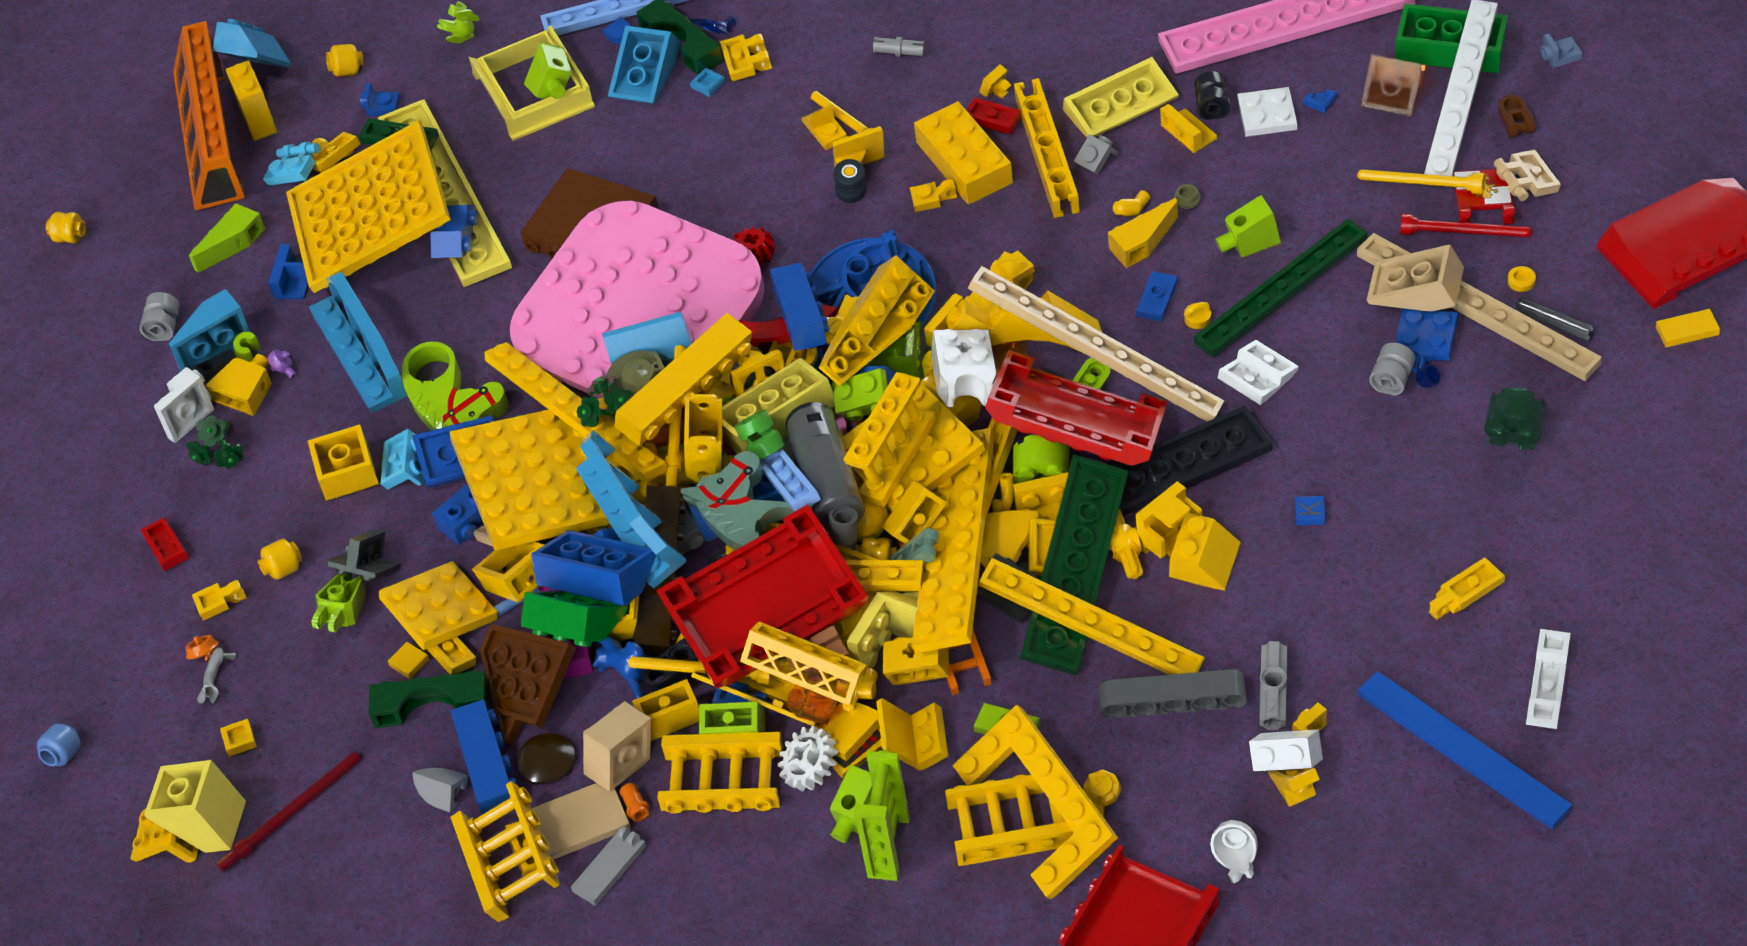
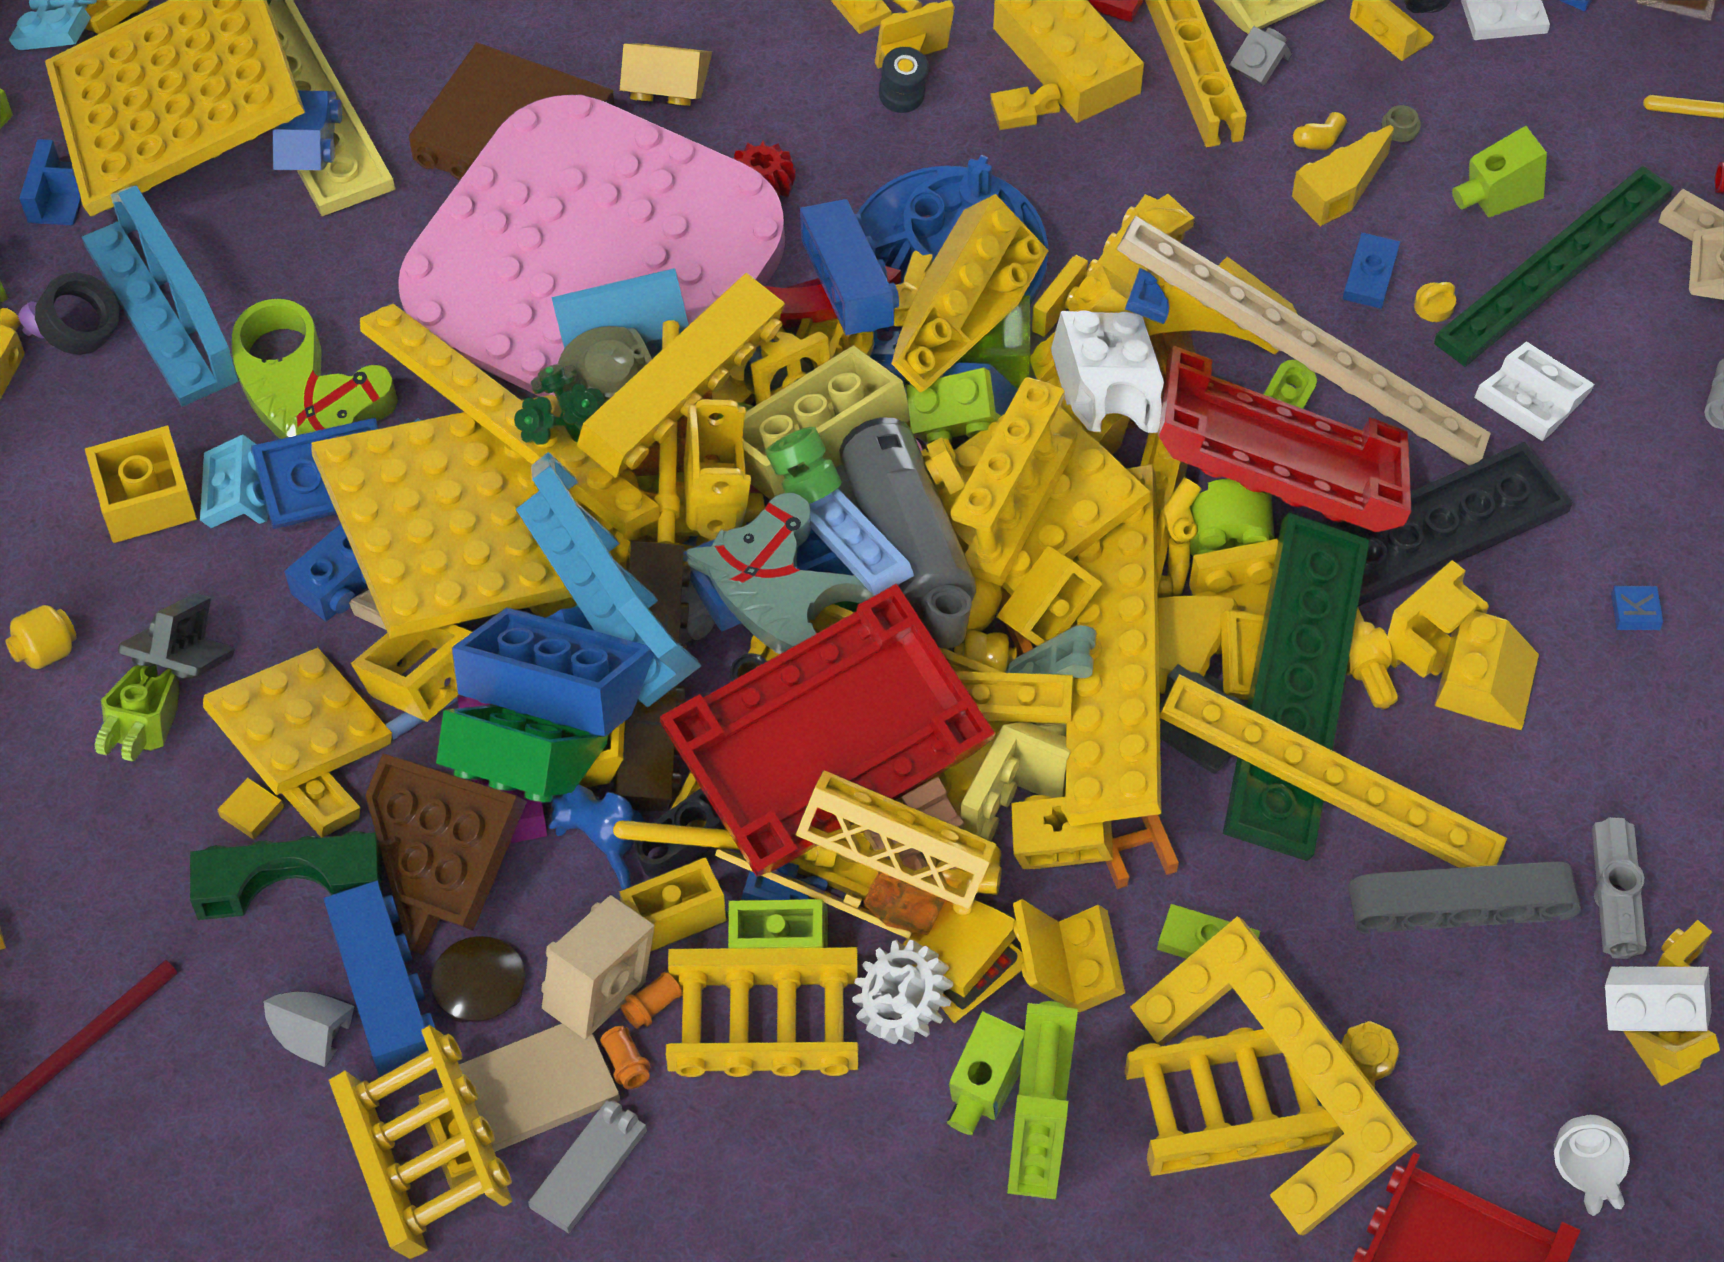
camera: 10 degrees left, 5 degrees up
(312, 340) = (90, 290): none -> black tyre
(653, 767) = (650, 1000): none -> orange pin
(691, 181) = (663, 71): none -> yellow slope
(848, 428) = (942, 465): none -> yellow plate
(990, 319) = (1148, 298): none -> blue tile
(1004, 457) = (1178, 513): none -> yellow arm

